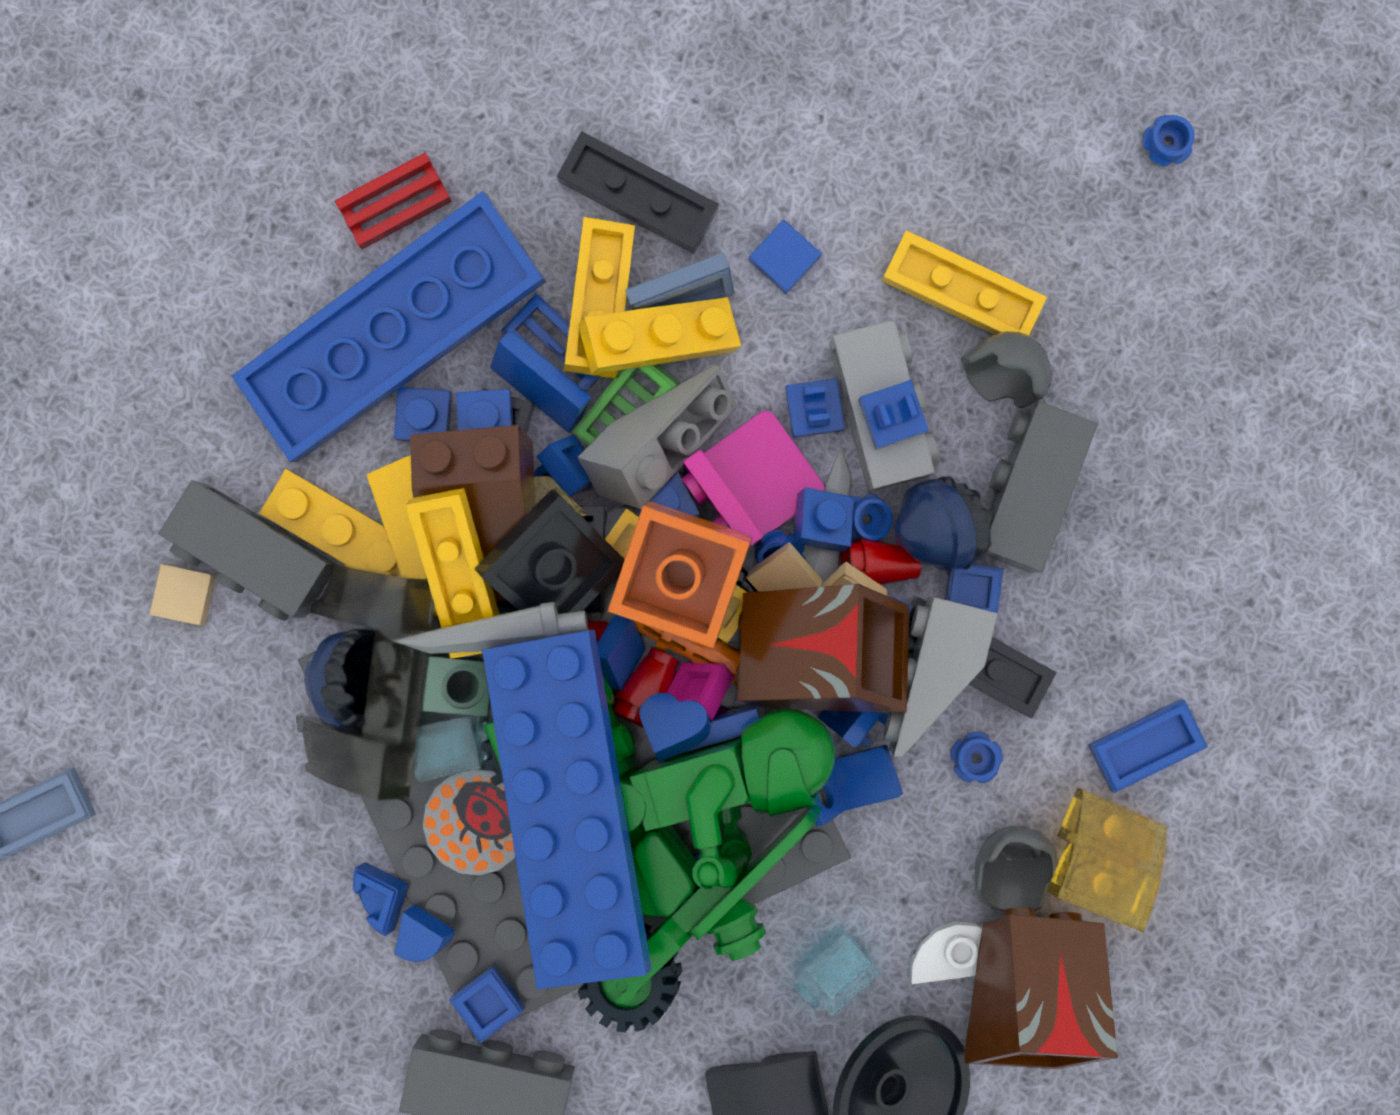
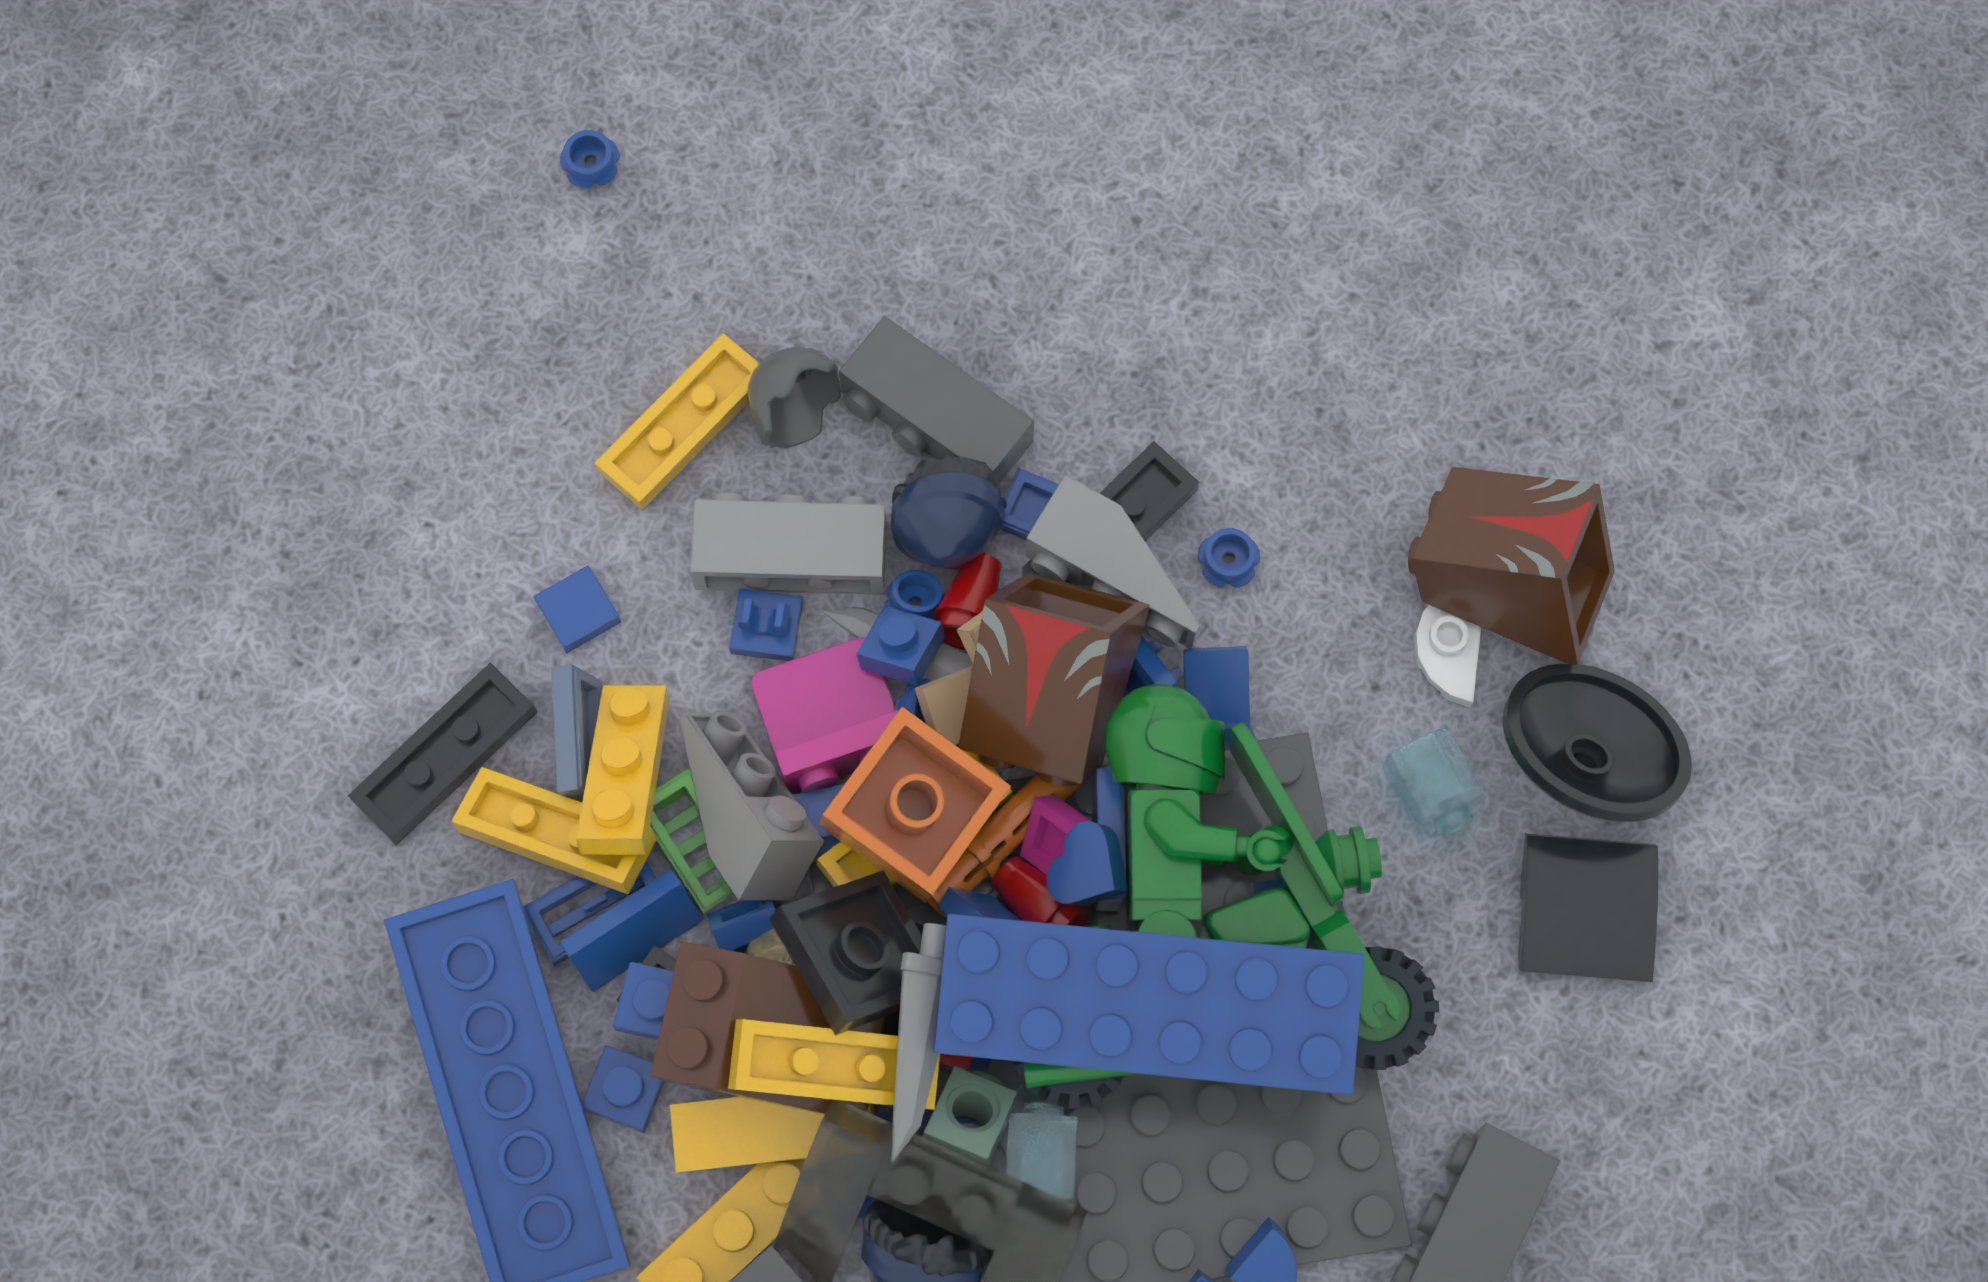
camera: 75 degrees left, 15 degrees down
(384, 183) = (339, 997): red tile -> none
(469, 823) = (1142, 1155): tile -> none
(487, 1003) = (1369, 1206): blue tile -> none
(893, 414) = (804, 529): blue tile -> none
(1019, 880) = (1379, 536): dark grey hair -> none
(1109, 860) = (1383, 443): clear yellow slope -> none
(1147, 745) = (1267, 371): blue tile -> none

